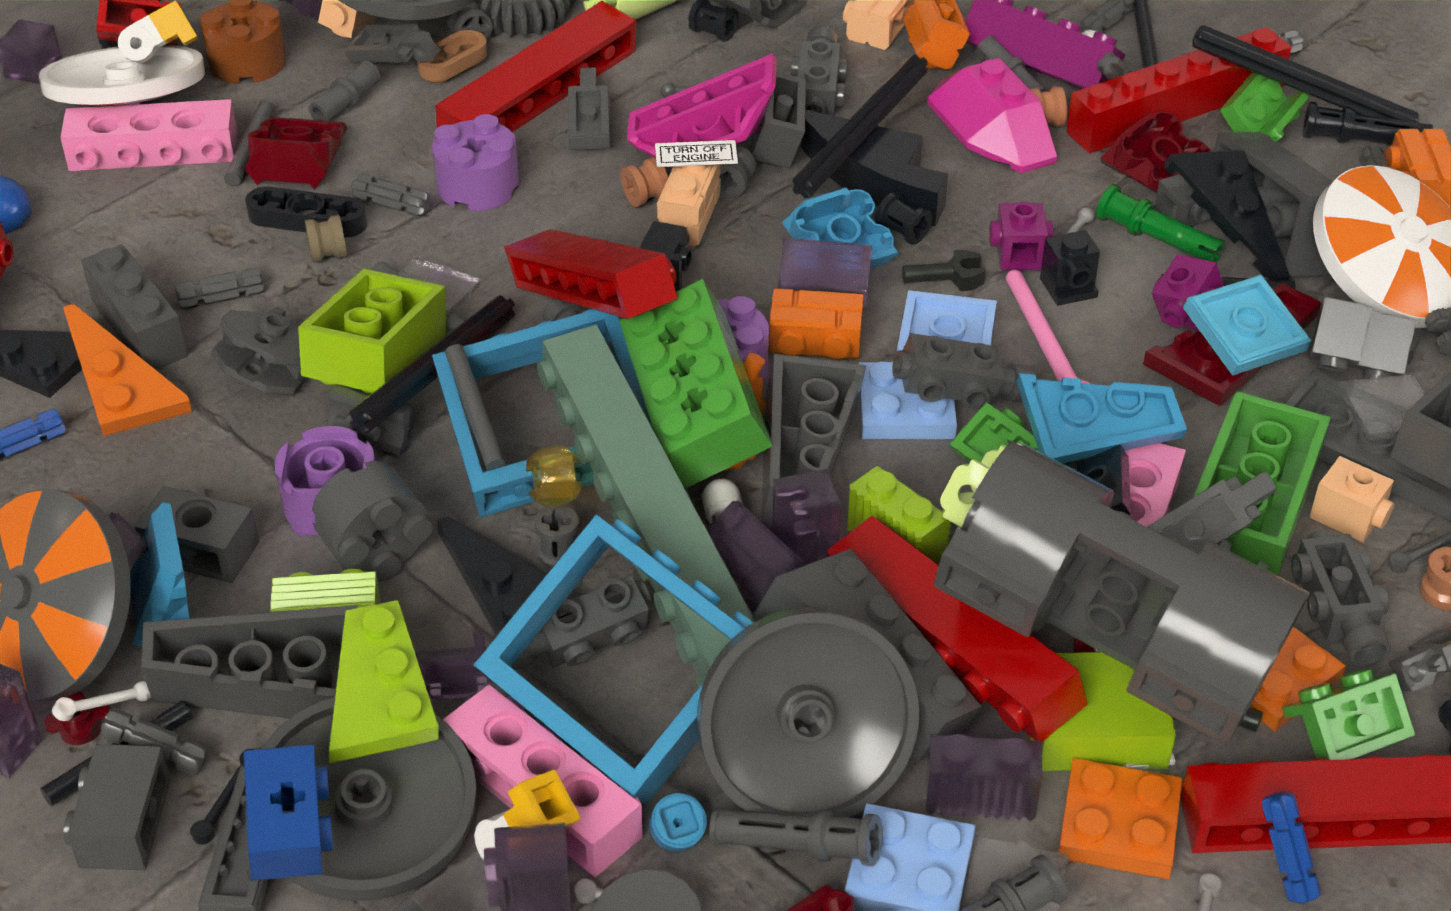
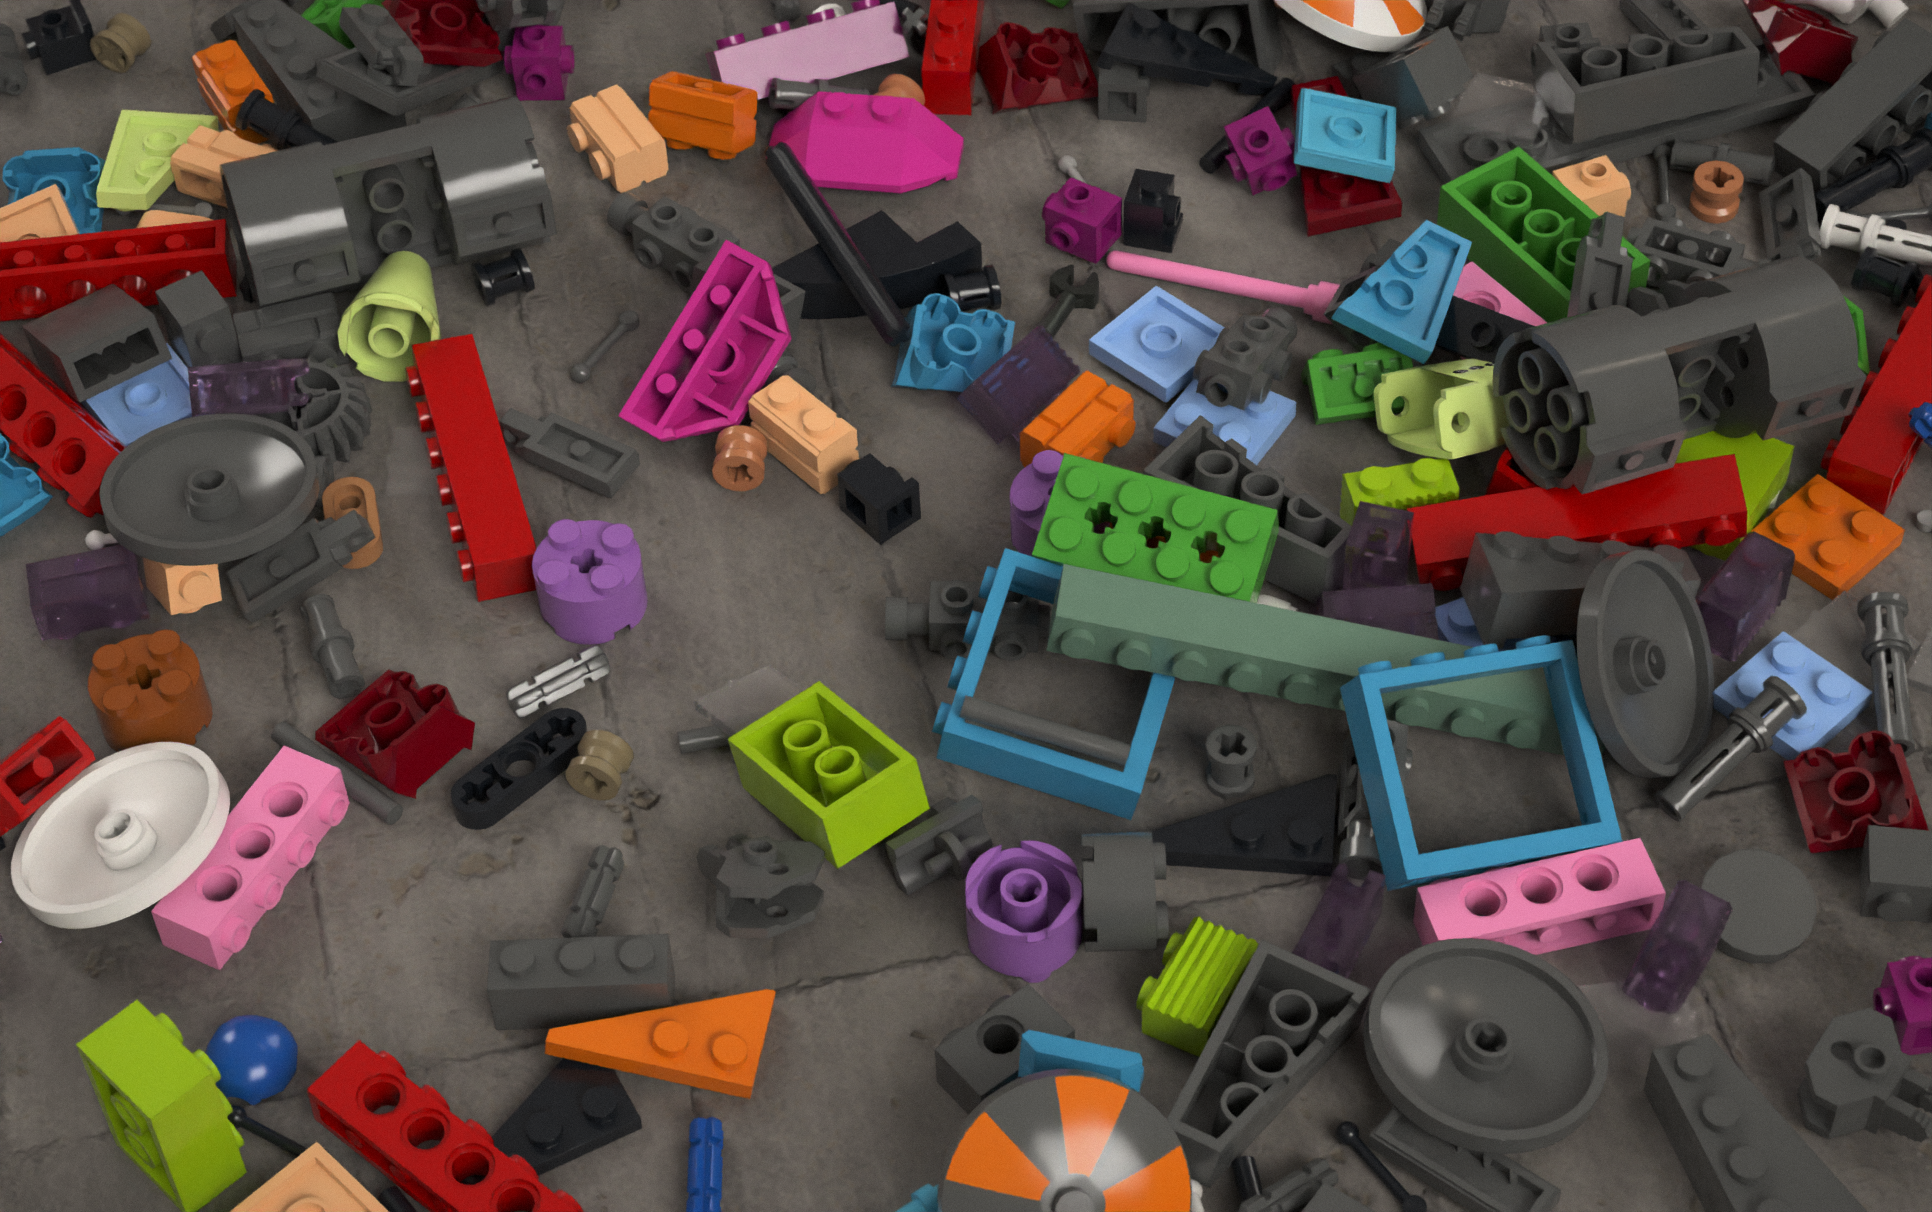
camera: 55 degrees left, 5 degrees up
(153, 31) = (89, 762): leg -> none
(279, 841) = (1507, 1098): blue brick -> none
(379, 687) = (1393, 962): lime wing -> none
(422, 370) = (935, 768): black axle -> none
(535, 803) = (1612, 931): yellow leg -> none
(553, 476) = (1192, 712): clear yellow piece -> none
(592, 272) = (926, 548): red brick -> none
(677, 822) = (1654, 828): dark azure tile -> none
(696, 153) = (779, 386): white sticker -> none
(1143, 218) = (1116, 127): green pin -> none

